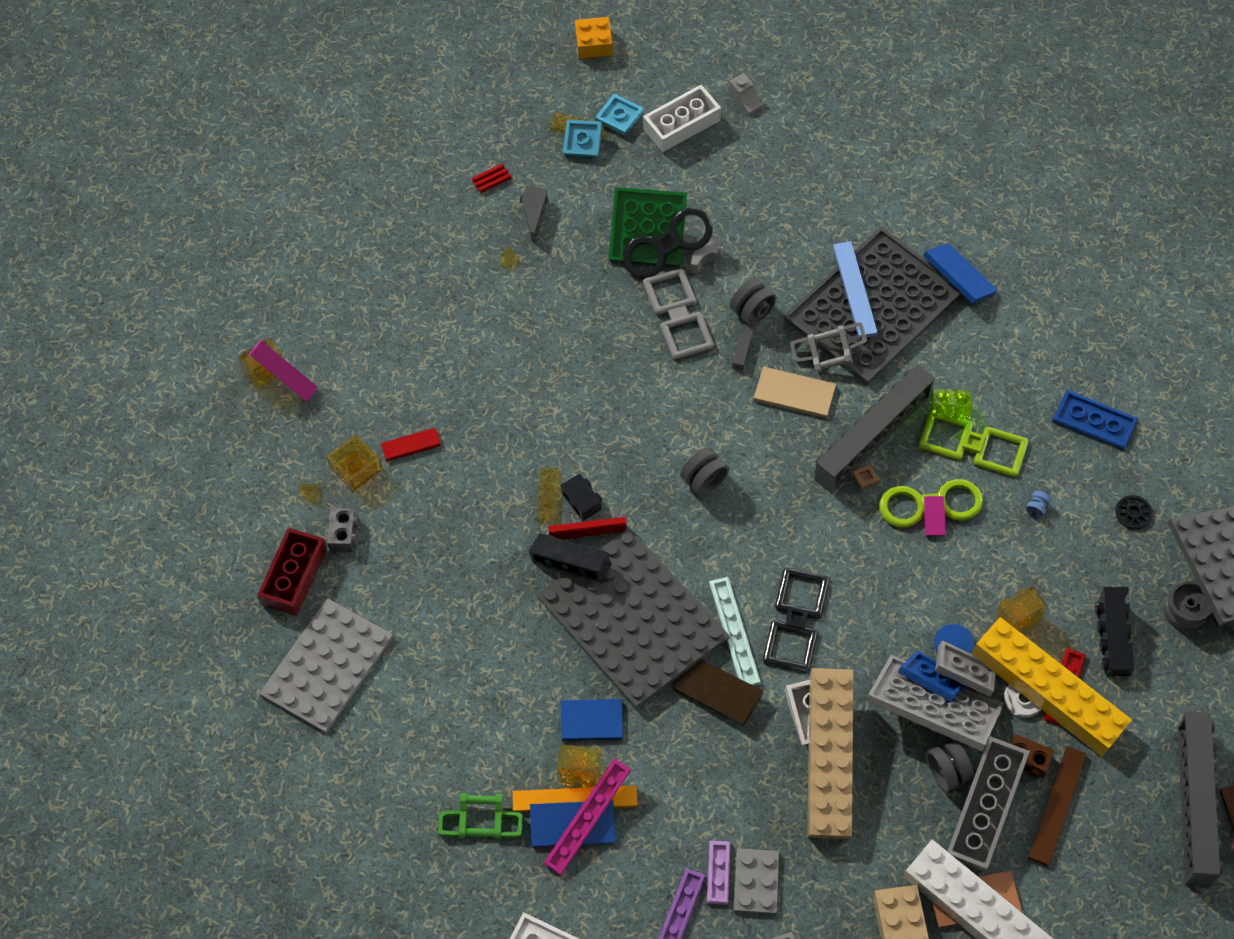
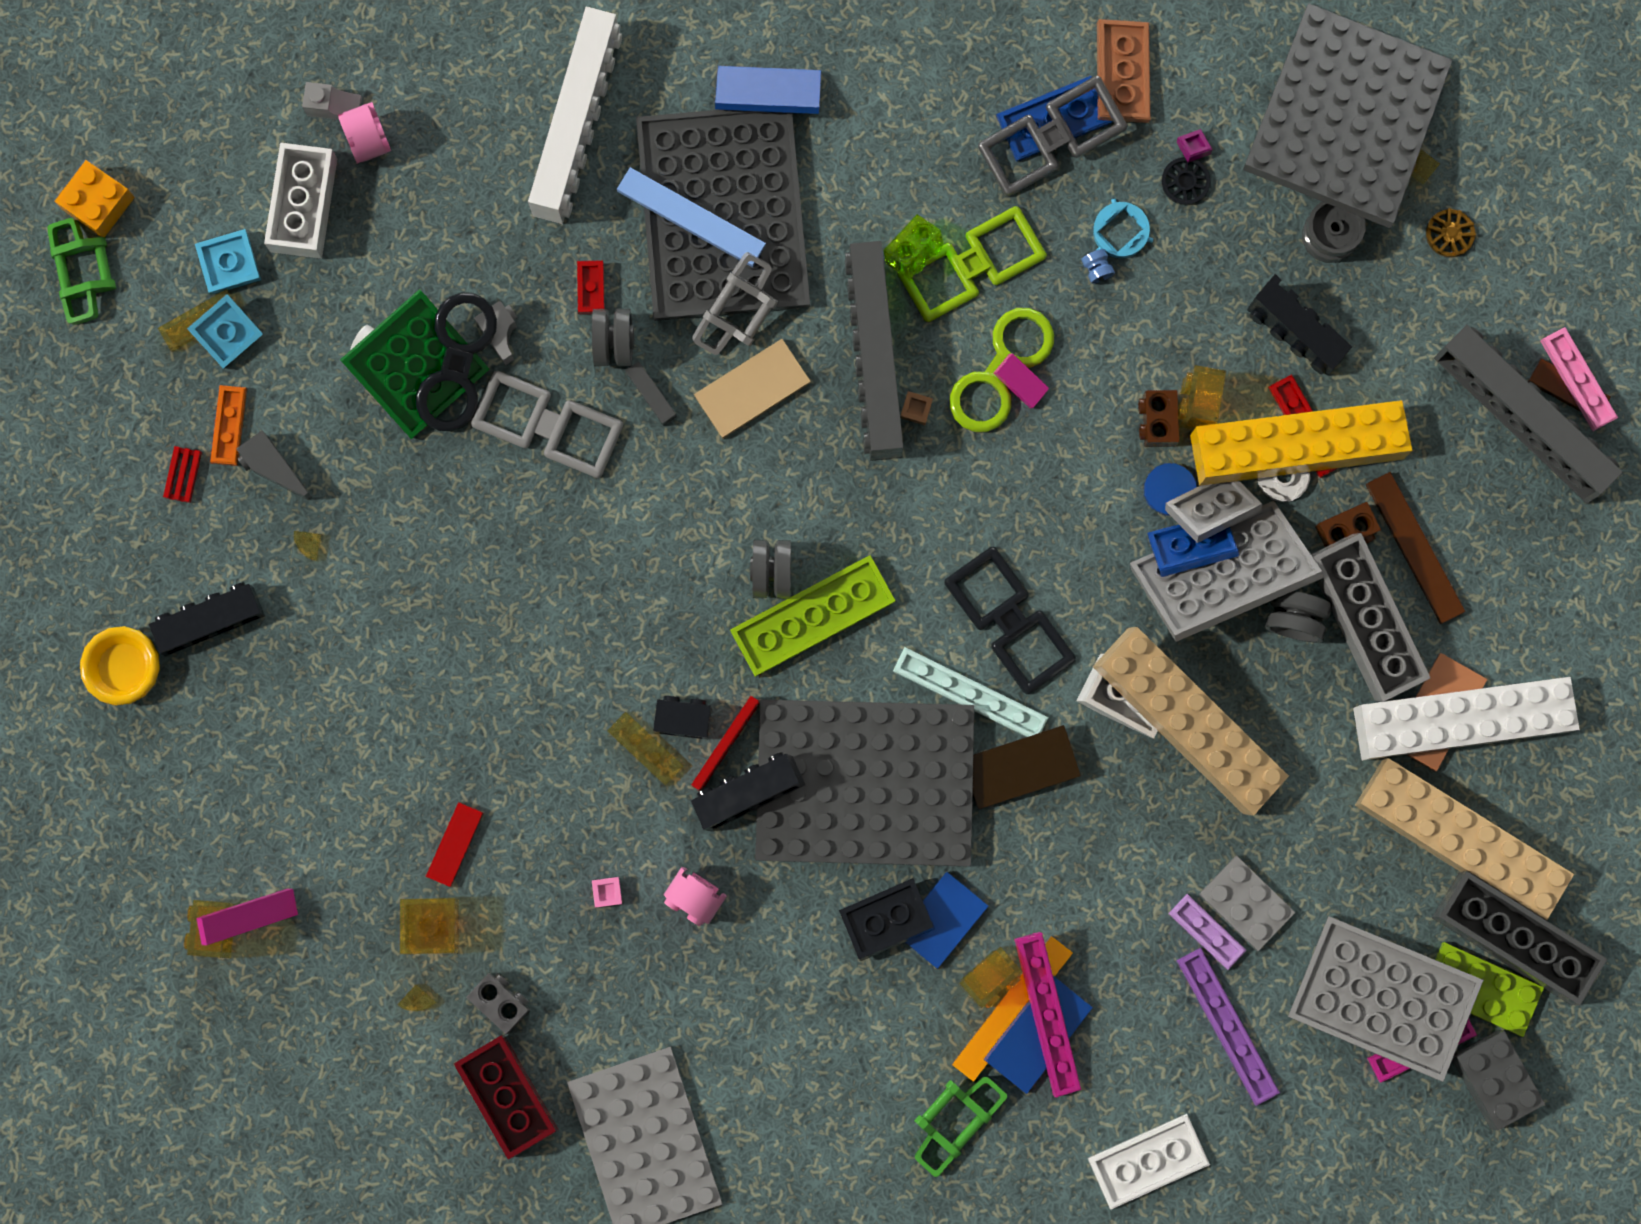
camera: 55 degrees left, 20 degrees up
(365, 223) = (119, 665): none -> yellow piece
(425, 242) = (206, 619): none -> black brick
(451, 535) = (607, 892): none -> bright pink plate
(487, 576) = (694, 897): none -> bright pink brick
(537, 177) = (228, 425): none -> orange tile
(547, 69) = (88, 288): none -> bright green bar
(564, 687) = (886, 919): none -> black plate
(700, 517) = (812, 616): none -> lime plate
(744, 116) = (364, 132): none -> bright pink brick
(773, 274) = (590, 286): none -> red plate
(850, 197) = (574, 116): none -> white brick
(984, 601) = (1165, 419): none -> reddish brown brick
(1072, 514) = (1136, 244): none -> medium azure piece
(1084, 423) = (1052, 136): none -> flat silver bar
(1157, 499) = (1194, 145): none -> magenta tile
(1158, 431) = (1124, 68): none -> nougat tile

